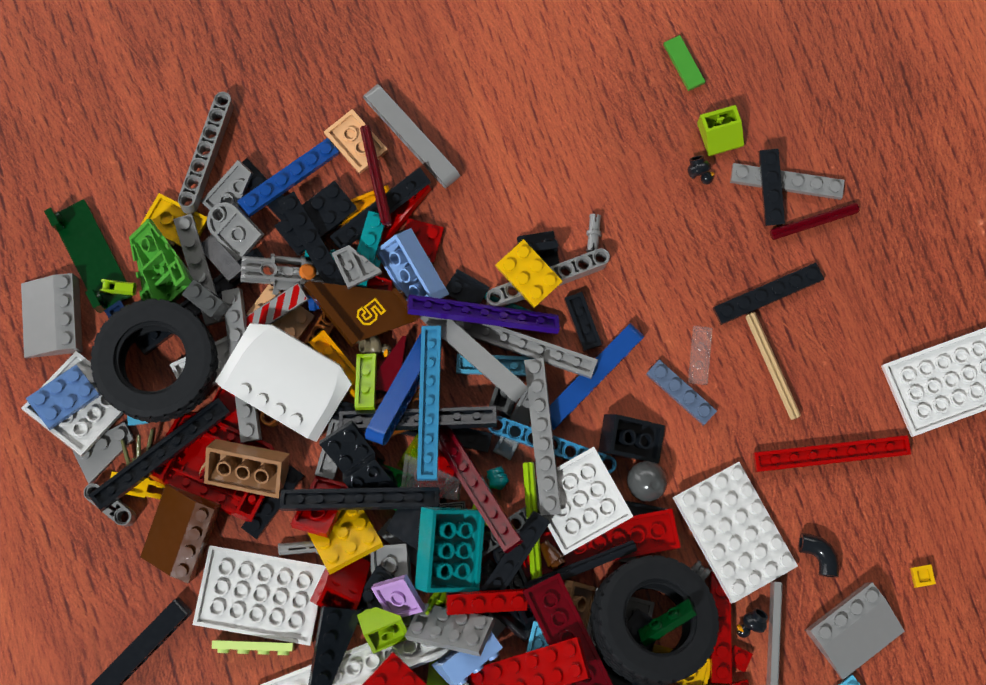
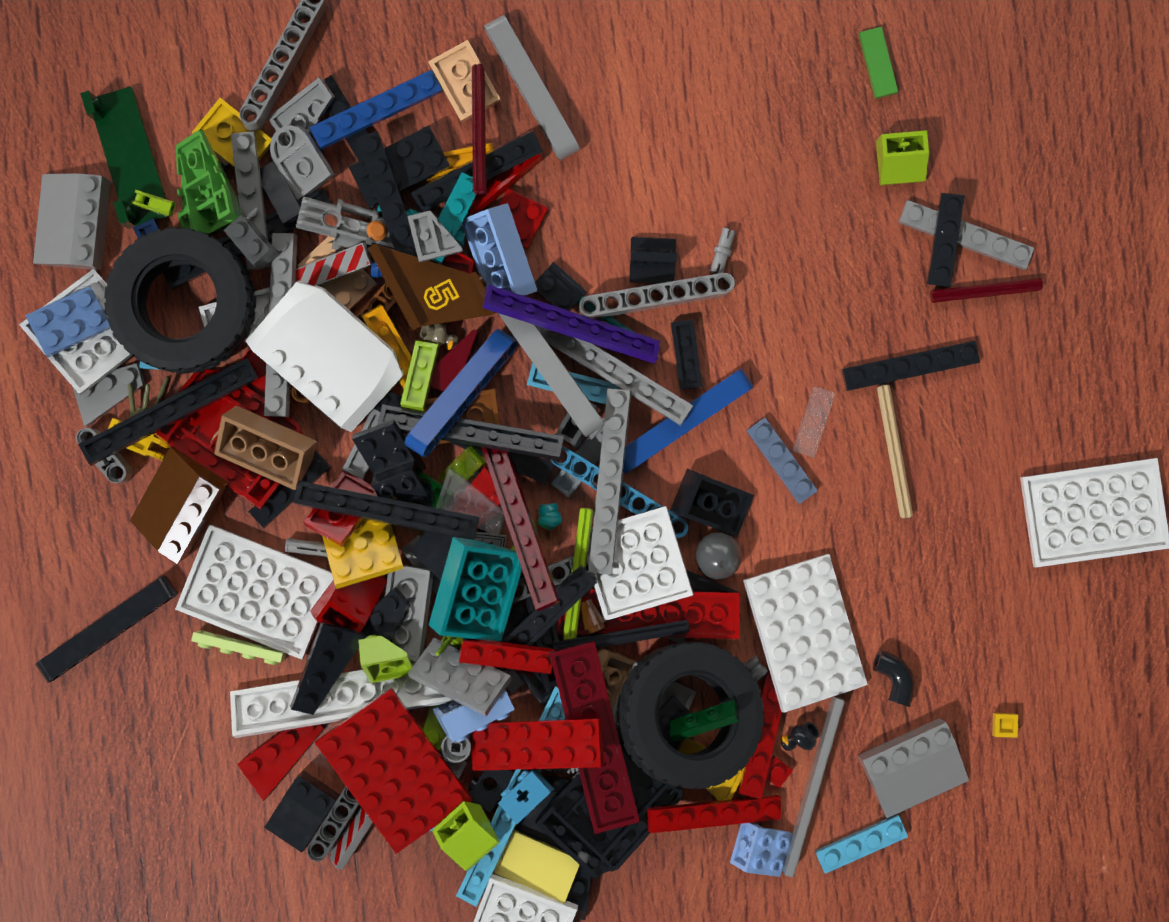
camera: 10 degrees right, 10 degrees up
(398, 596) = (409, 630): lavender plate -> none
(429, 403) = (487, 417): dark azure plate -> none
(528, 273) = (634, 287): yellow plate -> none
(700, 166) = (866, 198): black animal -> none
(831, 453) = (937, 567): red plate -> none

